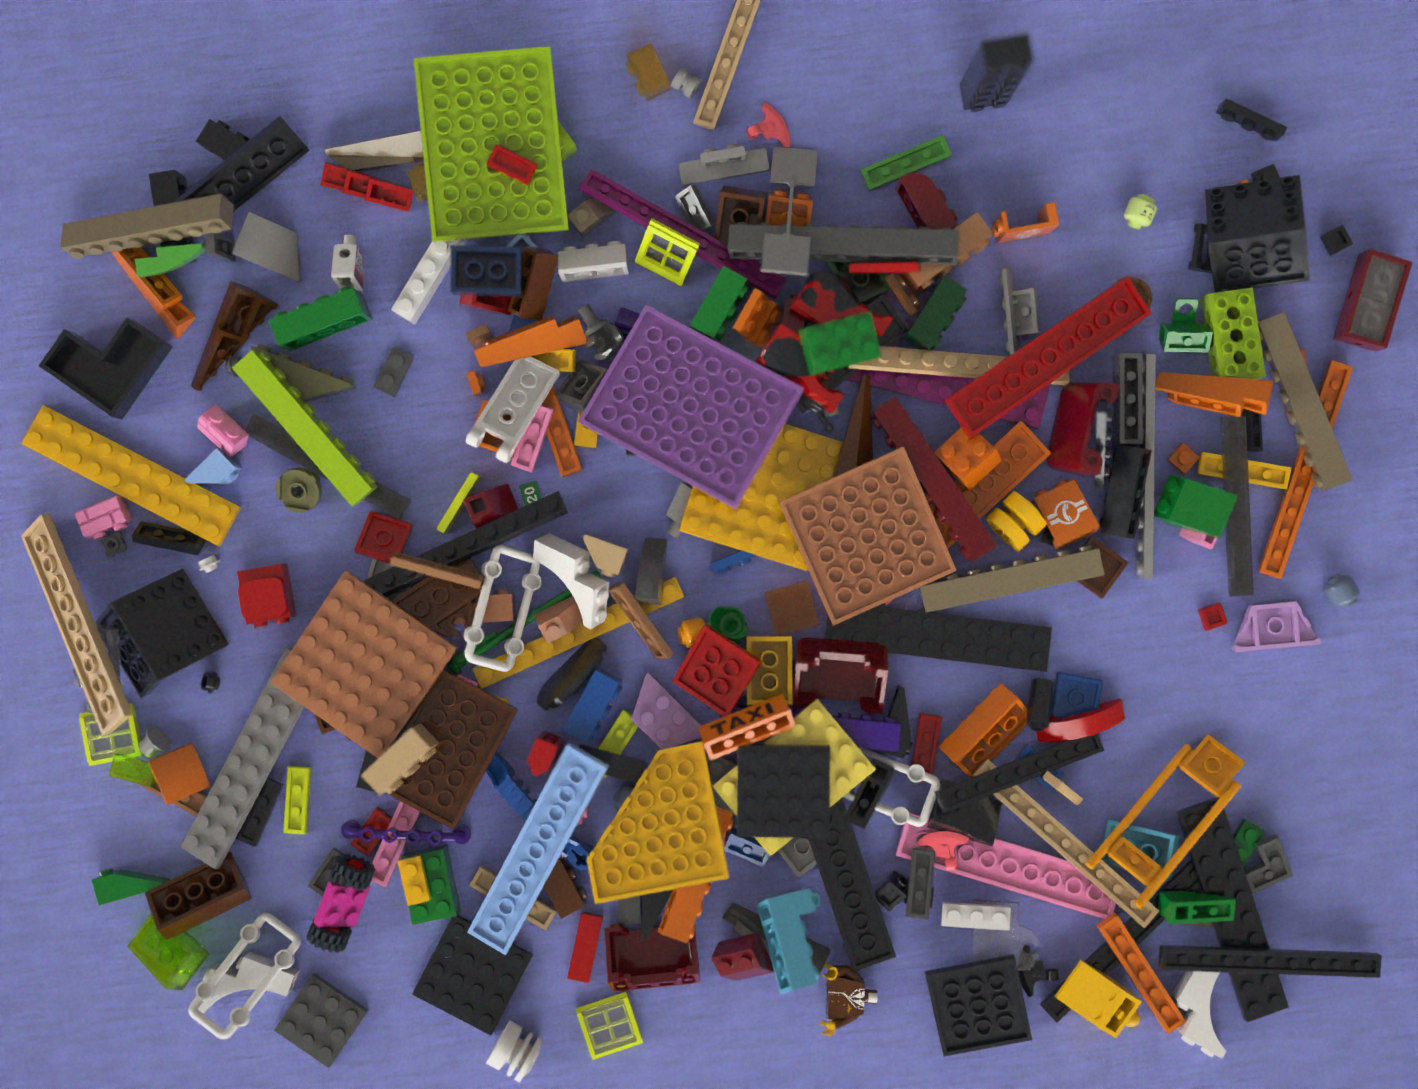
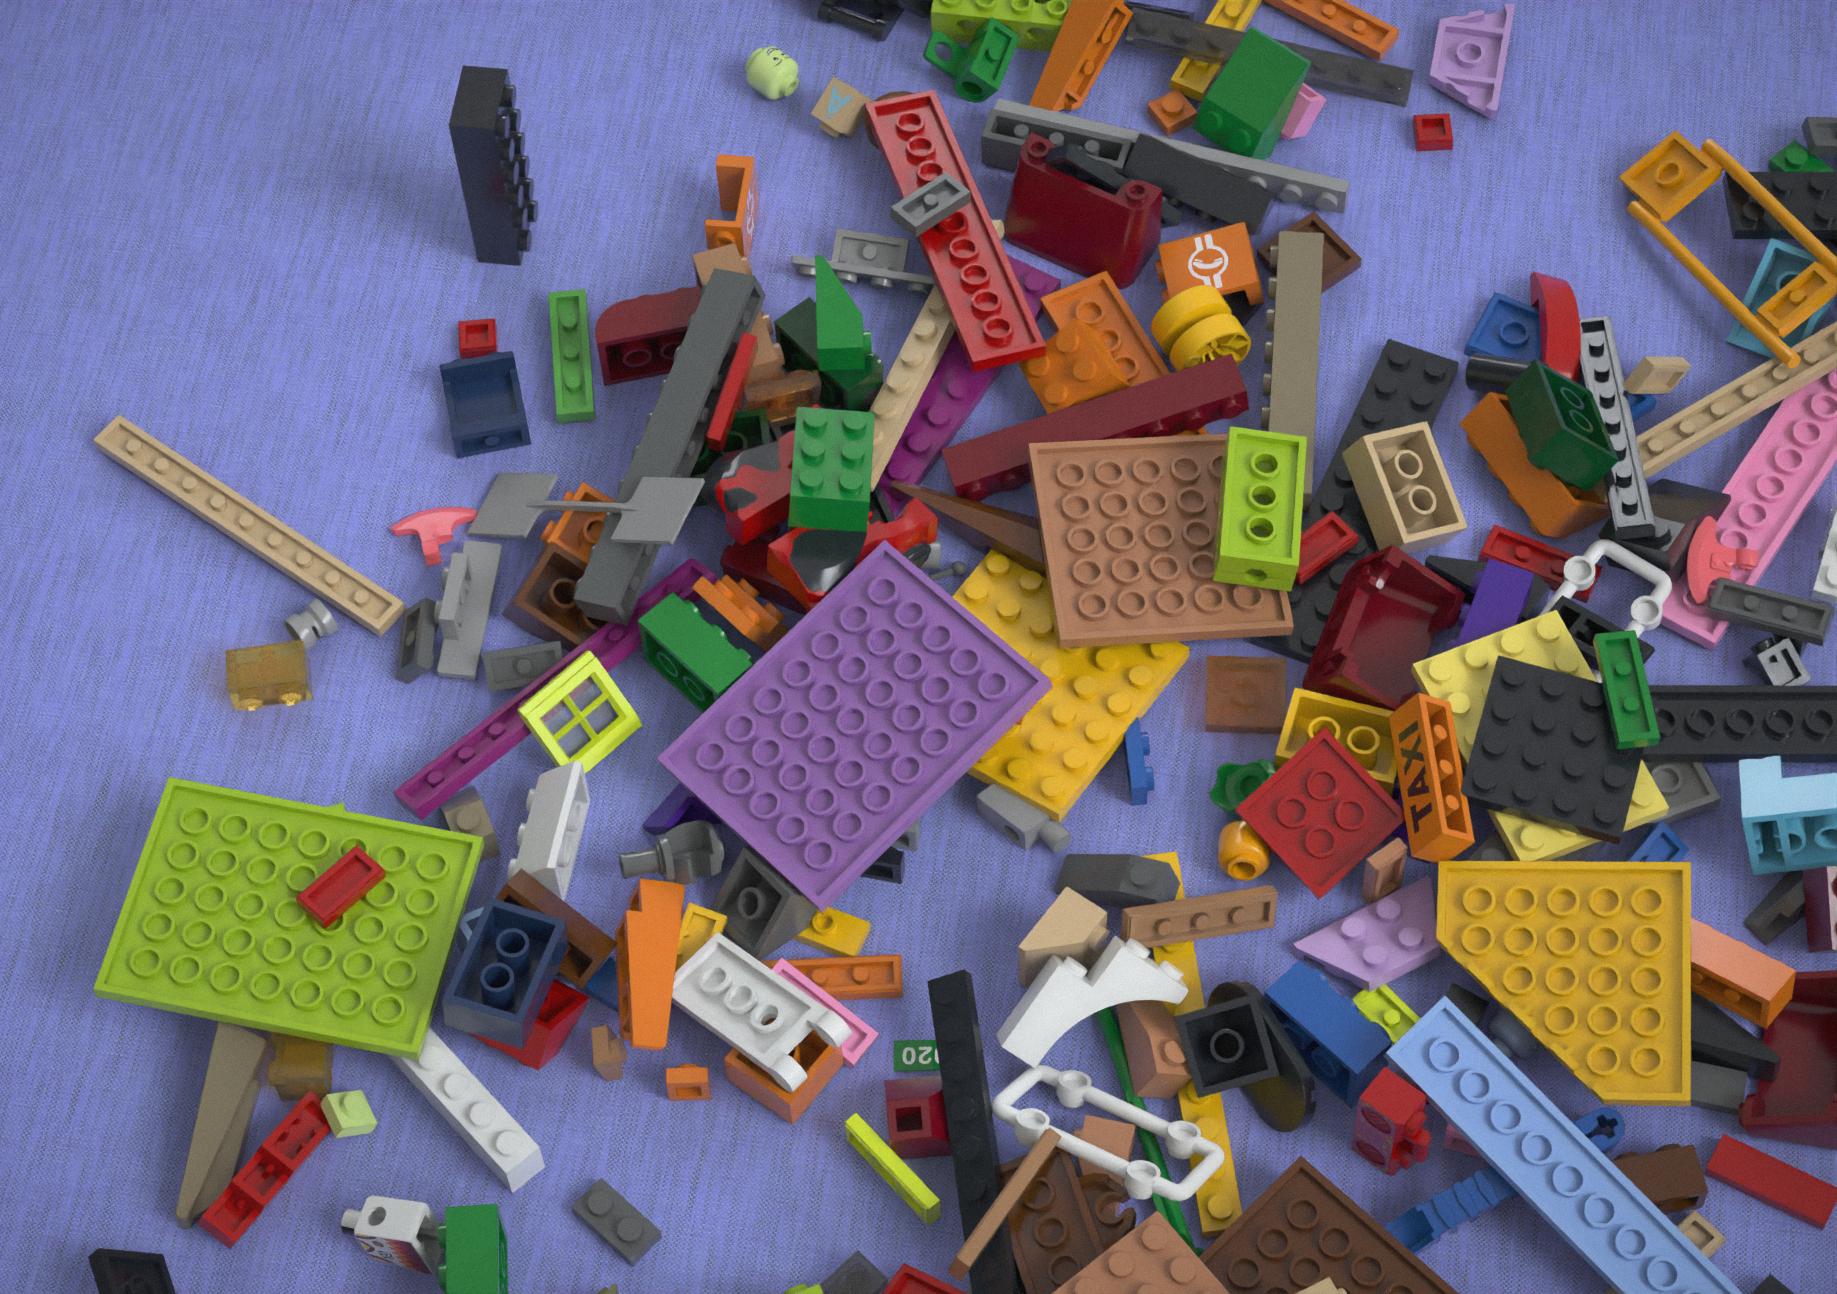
camera: 75 degrees left, 30 degrees down
(408, 215) = (348, 1113): none -> yellowish green plate
(566, 656) = (1227, 1045): none -> black slope
(692, 145) = (416, 641): none -> dark grey plate
(696, 712) = (1384, 871): none -> nougat tile
(822, 822) = (1626, 689): none -> green plate
(858, 126) = (485, 404): none -> dark blue panel
(893, 623) = (1323, 544): none -> red tile
(904, 104) = (477, 338): none -> red tile
(906, 600) = (1262, 532): none -> lime brick
(939, 664) = (1405, 488): none -> tan brick
(943, 315) = (839, 323): none -> green slope
(1003, 744) = (1561, 426): none -> dark green brick
(1054, 340) = (930, 204): none -> dark grey plate
(1124, 262) = (841, 108): none -> tan brick

